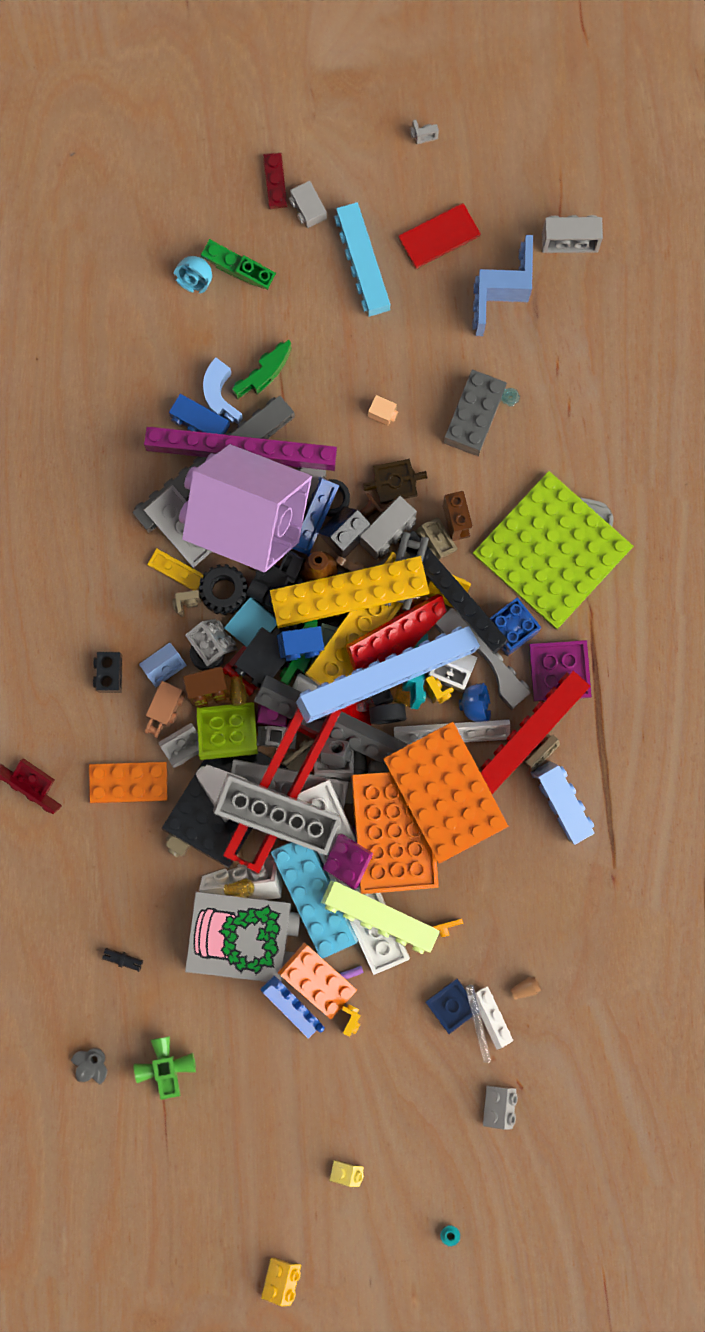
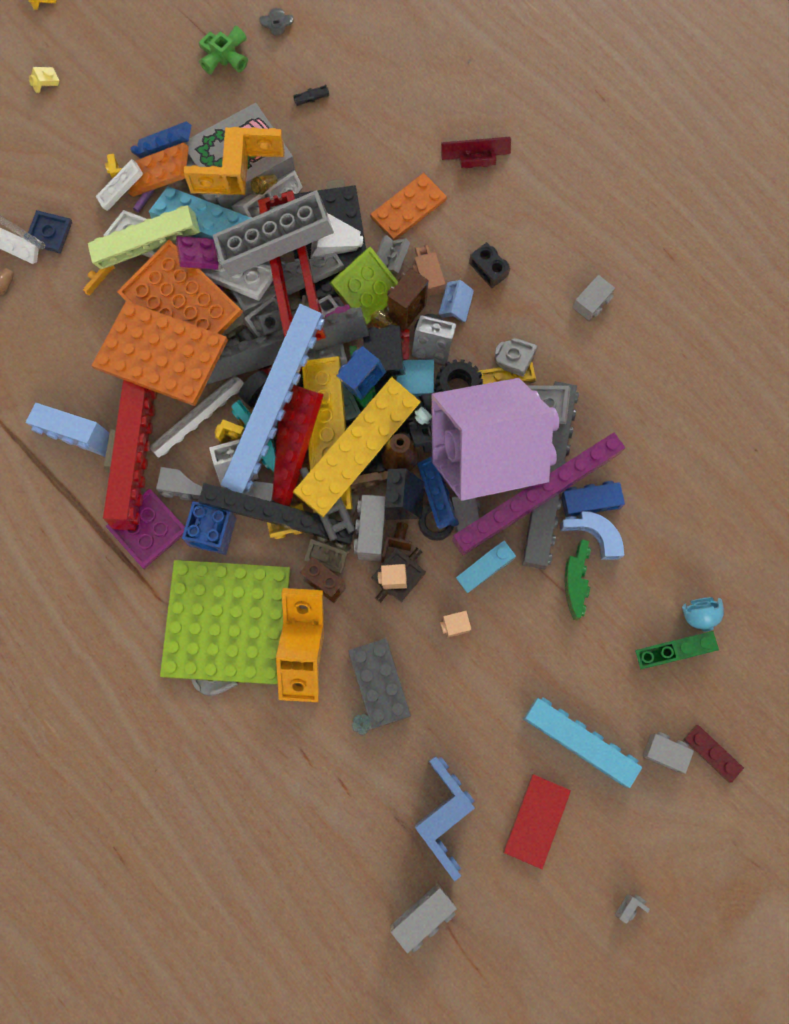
camera: 140 degrees right, 5 degrees down
(49, 575) = (594, 297): none -> light grey brick
(156, 579) = (515, 355): none -> light grey tile
(188, 598) = (480, 348): dark tan bracket -> none
(251, 914) = (232, 176): none -> light orange bracket
(276, 579) = (422, 416): none -> light aqua plate
(324, 434) = (486, 566): none -> medium azure slope
(360, 997) = (119, 185): none -> white plate
(402, 477) = (393, 576): none -> light nougat brick
(475, 703) = (194, 449): blue cylinder -> none
(511, 481) = (300, 645): none -> light orange bracket

